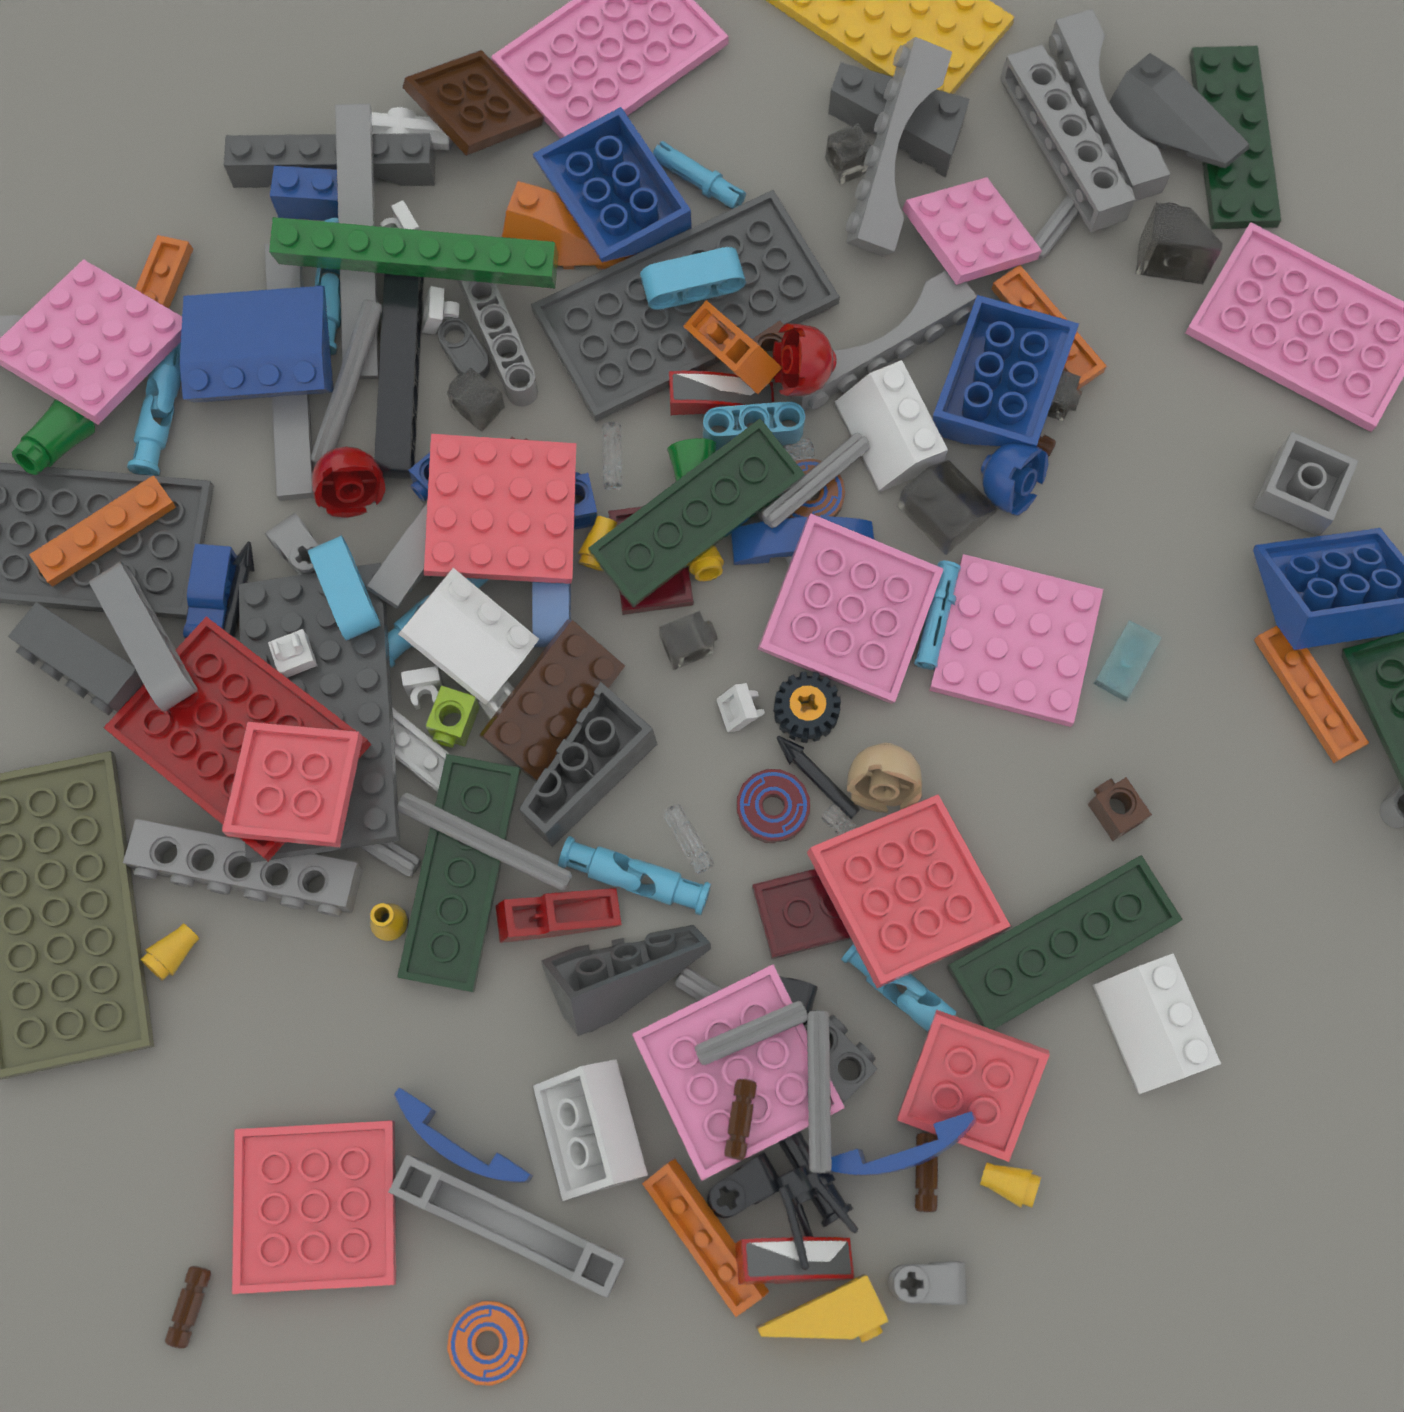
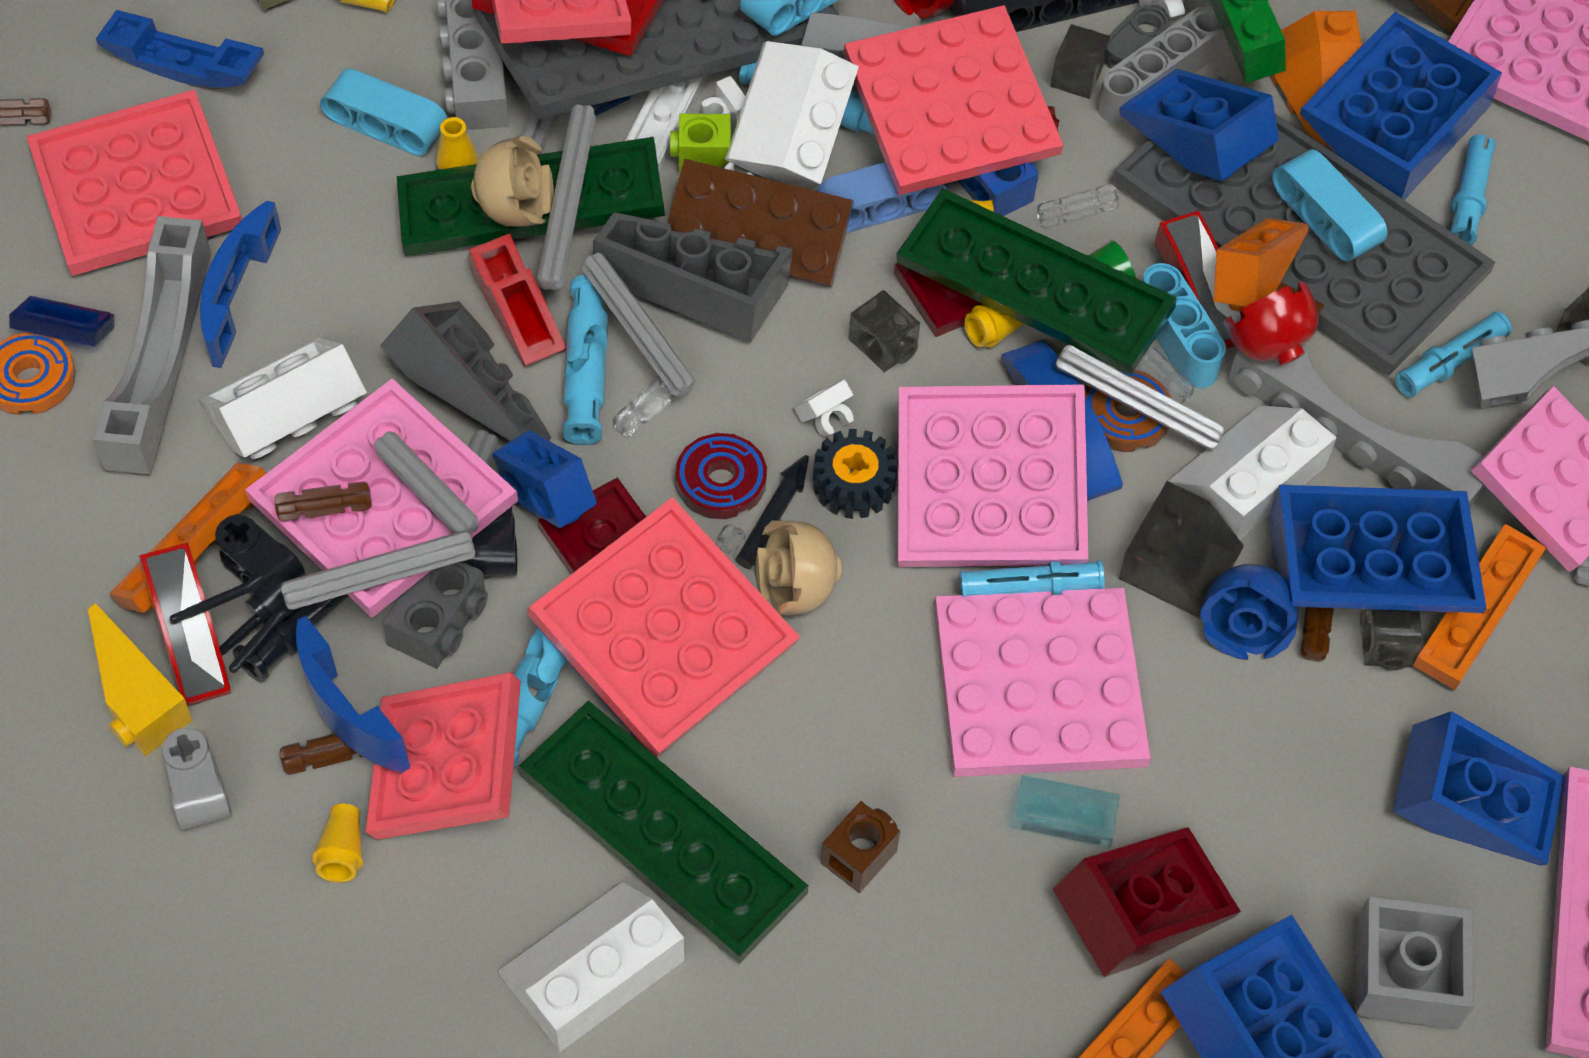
camera: 70 degrees right, 15 degrees down
(183, 1134) = (177, 58): none -> blue slope
(318, 970) = (383, 111): none -> medium azure beam
(446, 1302) = (62, 321): none -> clear blue tile
(465, 882) = (513, 183): none -> tan cylinder
(581, 334) = (1204, 122): none -> blue slope
(626, 824) = (638, 324): none -> light grey axle
(753, 940) = (546, 478): none -> blue brick
(842, 265) = (1419, 376): none -> medium azure pin
(1187, 391) = (1478, 789): none -> blue slope
(1211, 634) = (1144, 899): none -> dark red slope

